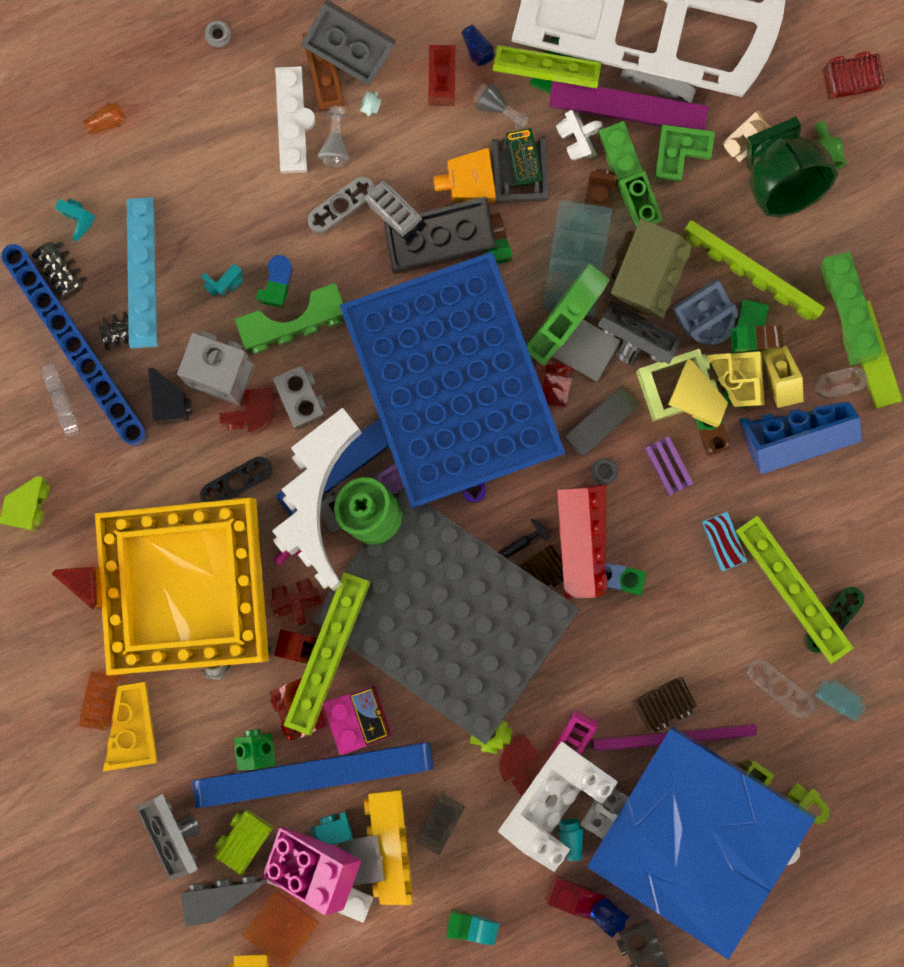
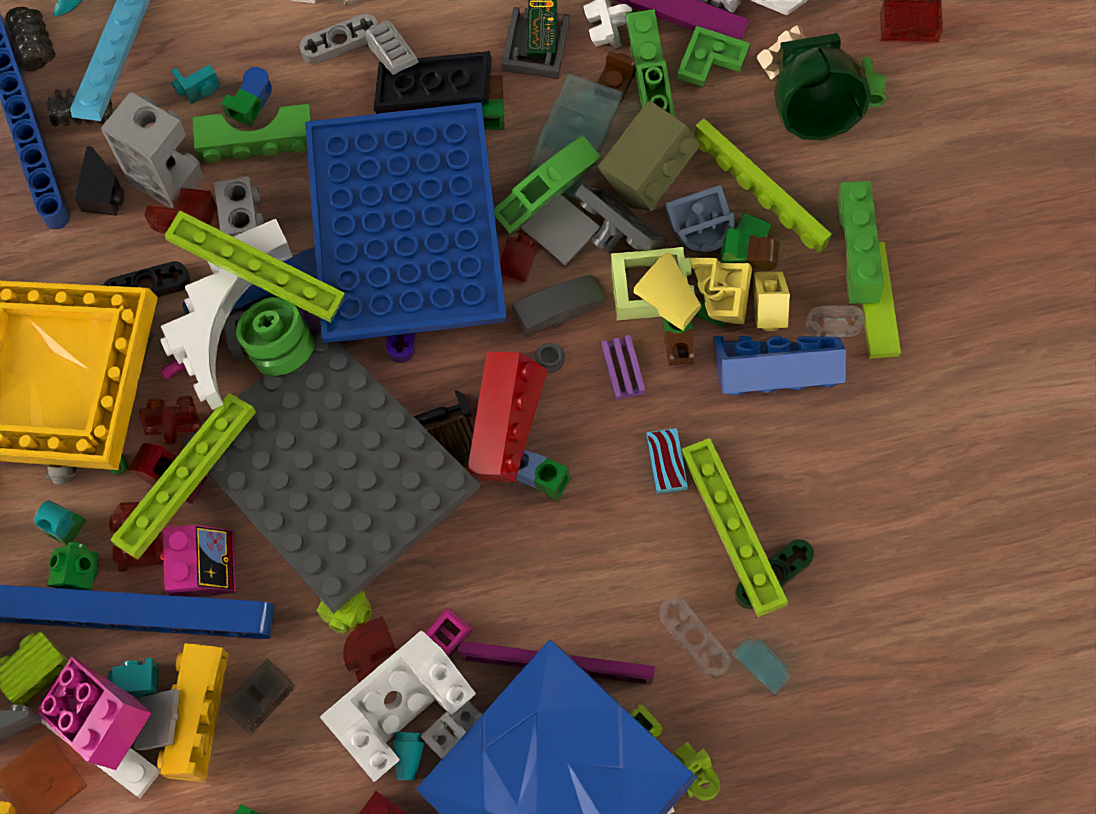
camera: 20 degrees right, 15 degrees down
(231, 714) = (58, 522): none -> teal leg
(339, 460) = (255, 266): none -> lime plate
(468, 177) = (479, 33): light orange torso -> none
(664, 704) = (555, 620): dark brown brick -> none

